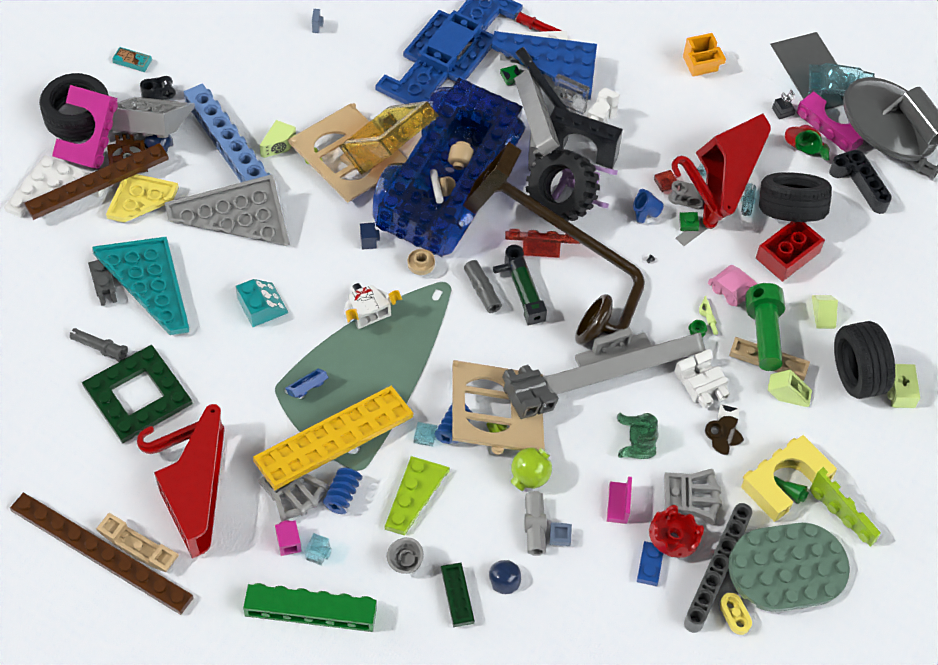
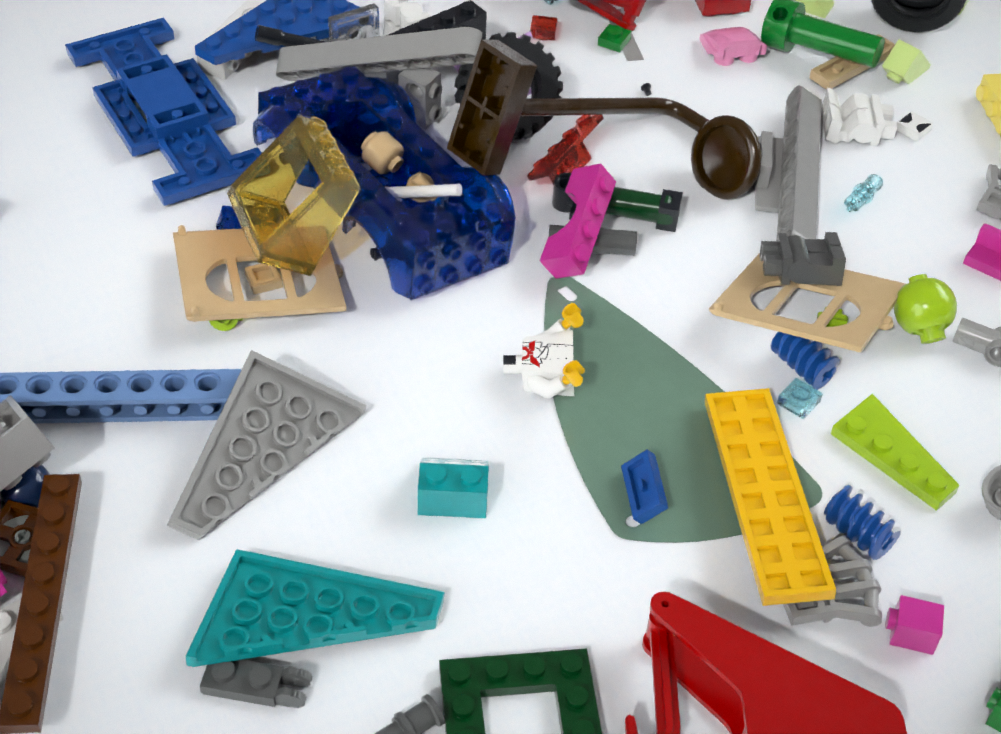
camera: 60 degrees left, 10 degrees down
(139, 196) = (120, 555): light yellow plate -> none
(277, 139) = (161, 335): yellowish green slope -> none
(318, 549) = (953, 592): clear light blue plate -> none
(369, 236) = (423, 313): dark blue plate -> none
(421, 261) = (511, 278): tan plate -> none
(463, 275) = (571, 247): none -> dark pink arch
(509, 74) = (262, 77): green tile -> none
(533, 23) = (199, 24): red axle -> none
(628, 407) = (863, 193): none -> clear light blue axle
(642, 436) = (912, 196): clear green hair -> none
(646, 205) = (570, 51): blue piece -> none
(687, 194) = (578, 21): light grey piece -> none
(698, 324) = (777, 94): green plate -> none
(708, 314) = (752, 80): yellowish green hand -> none
(726, 435) = (940, 138): dark brown plate -> none

